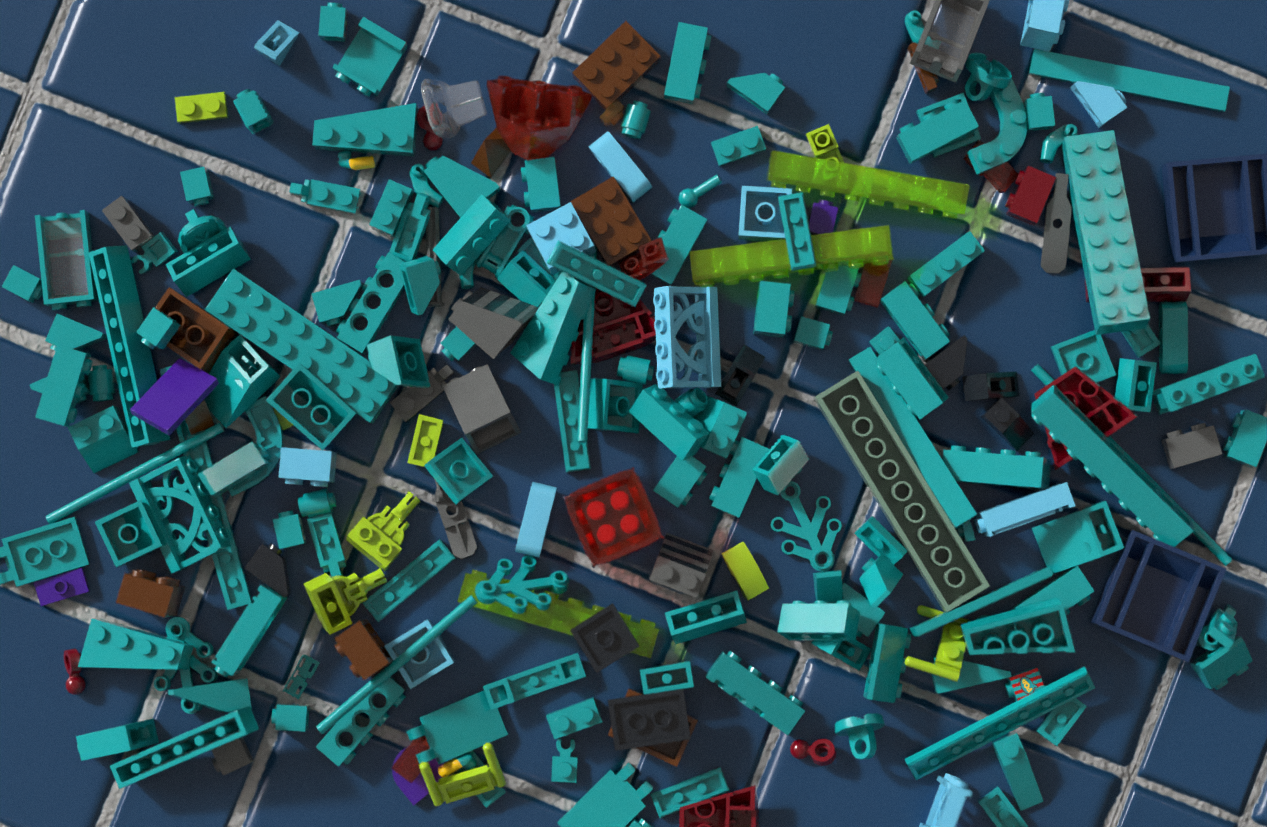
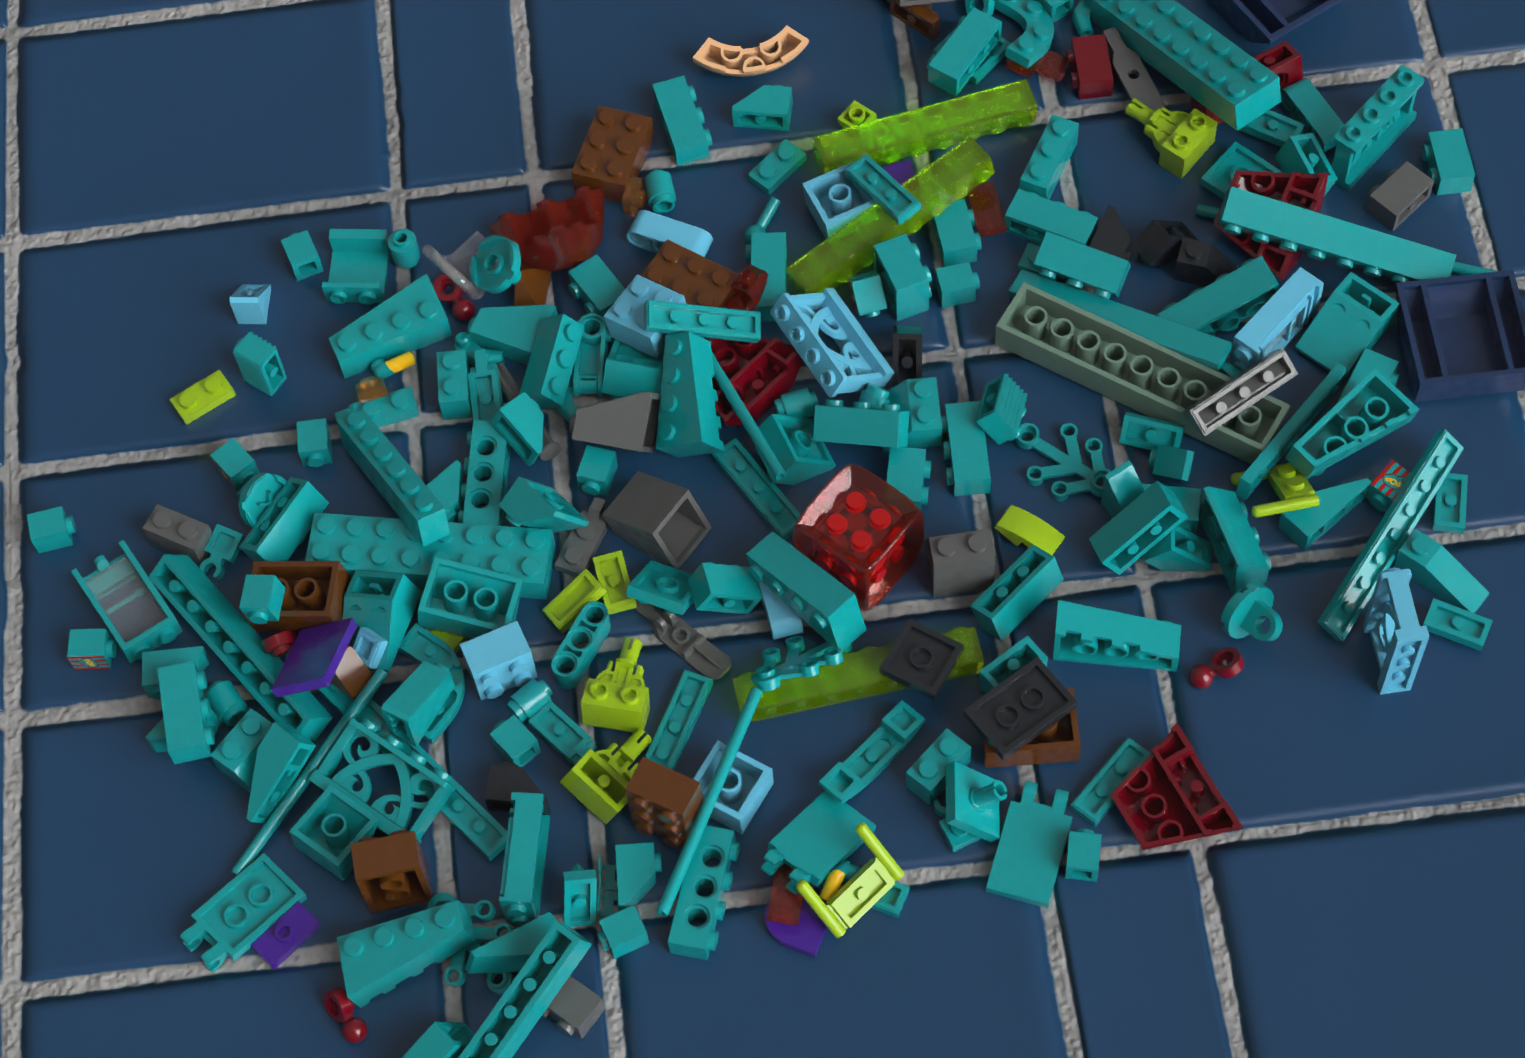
camera: 25 degrees left, 25 degrees down
(37, 165) = (51, 529): none -> teal brick
(110, 462) = (276, 768): none -> teal slope
(159, 363) = (279, 643): none -> dark red plate
(219, 403) = (369, 647): none -> medium azure tile
(264, 200) = (314, 442): none -> teal brick
(273, 678) = (579, 896): none -> teal tile
(303, 274) = (393, 478): none -> teal brick
(322, 678) = (635, 872): none -> teal slope
(328, 176) = (371, 388): none -> clear orange plate
(363, 484) = (581, 658): none -> teal beam
(388, 441) = (570, 601): none -> lime tile
(416, 70) = (404, 248): none -> teal brick
(483, 125) = (507, 269): none -> teal plate
(499, 498) = (724, 588): none -> teal brick
(552, 538) = (807, 590): none -> teal wedge
(581, 761) = (973, 801): none -> teal tile
(739, 305) = (867, 294): none -> teal brick
(770, 41) = (753, 61): none -> light nougat brick
(959, 556) = (1240, 392): none -> dark grey slope
(1056, 298) = (1176, 135): none -> lime brick

